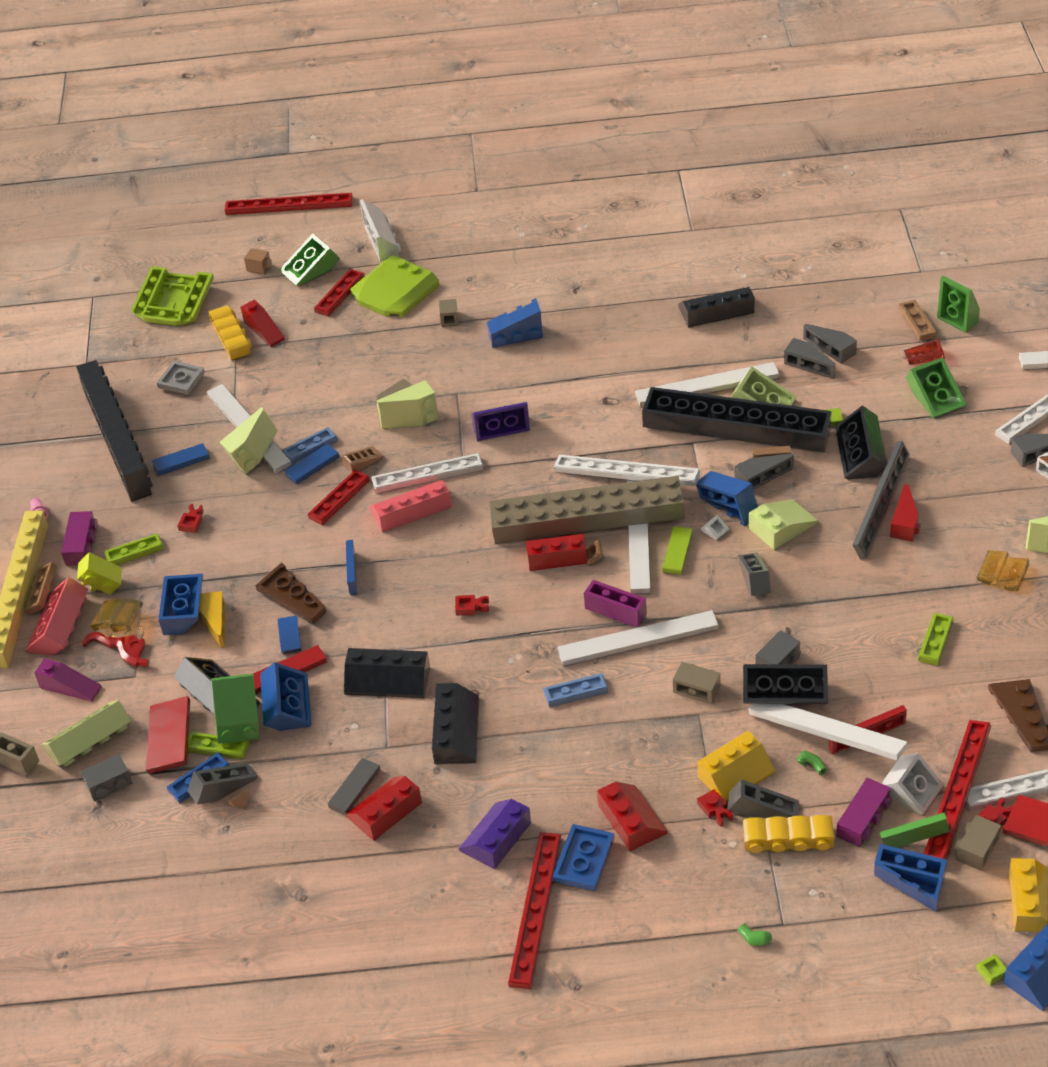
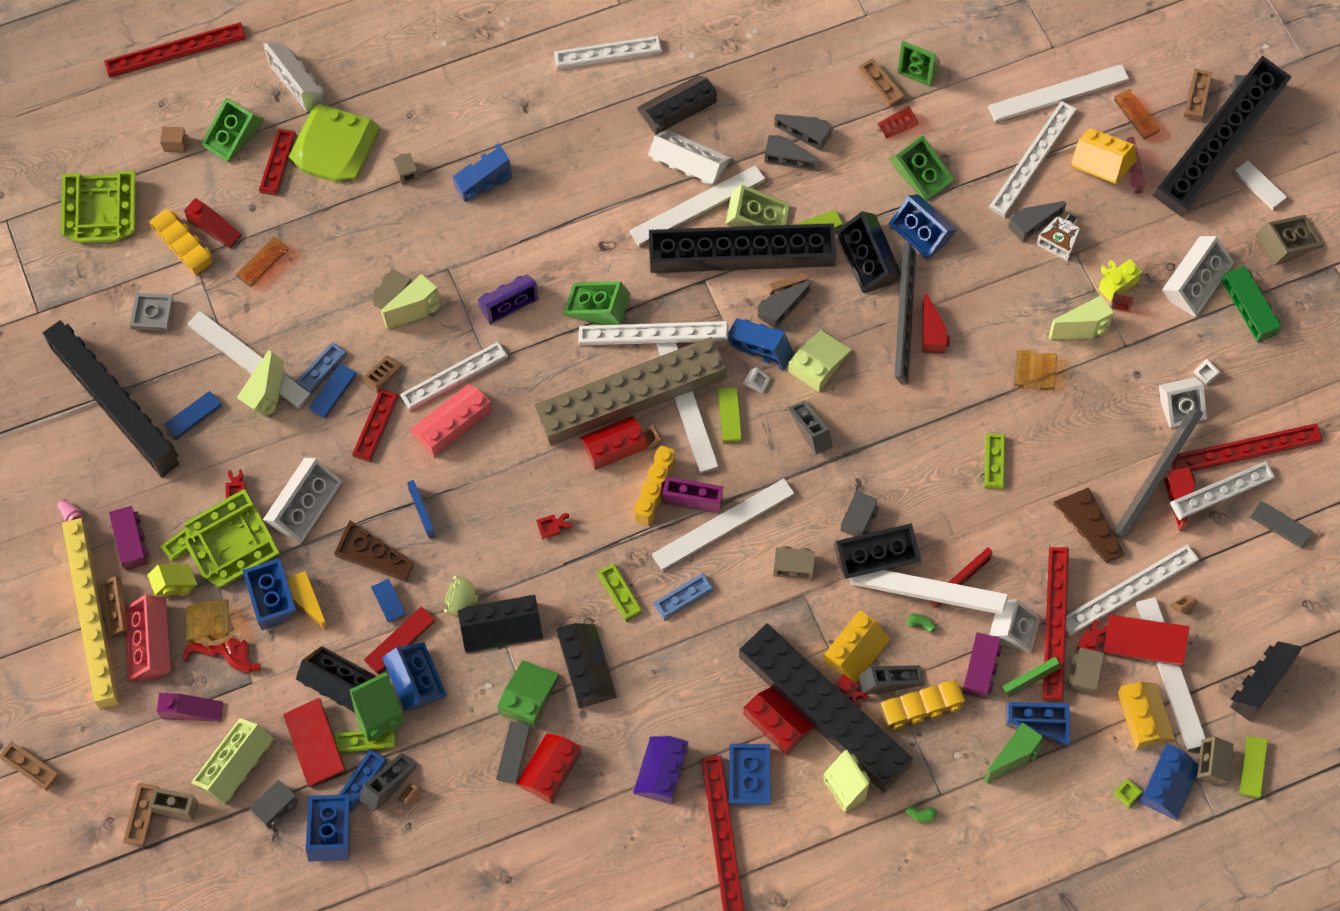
camera: 20 degrees left, 20 degrees up
(146, 809) = (328, 828): none -> blue slope
(165, 551) = (229, 539): none -> lime wedge
(247, 539) = (303, 499): none -> white slope
(292, 358) = (262, 262): none -> clear orange plate
(356, 637) = (460, 595): none -> yellowish green cylinder
(387, 738) = (527, 693): none -> bright green slope
(513, 674) = (619, 592): none -> lime tile
(571, 600) = (652, 488): none -> yellow brick
(584, 438) = (598, 302): none -> bright green slope
(666, 261) = (607, 52): none -> white tile
(681, 880) = (847, 781): none -> yellowish green slope
(686, 816) = (825, 707): none -> black brick
(711, 345) = (688, 156): none -> white slope
(871, 898) = (1018, 751): none -> bright green slope
(922, 433) = (922, 226): none -> blue slope

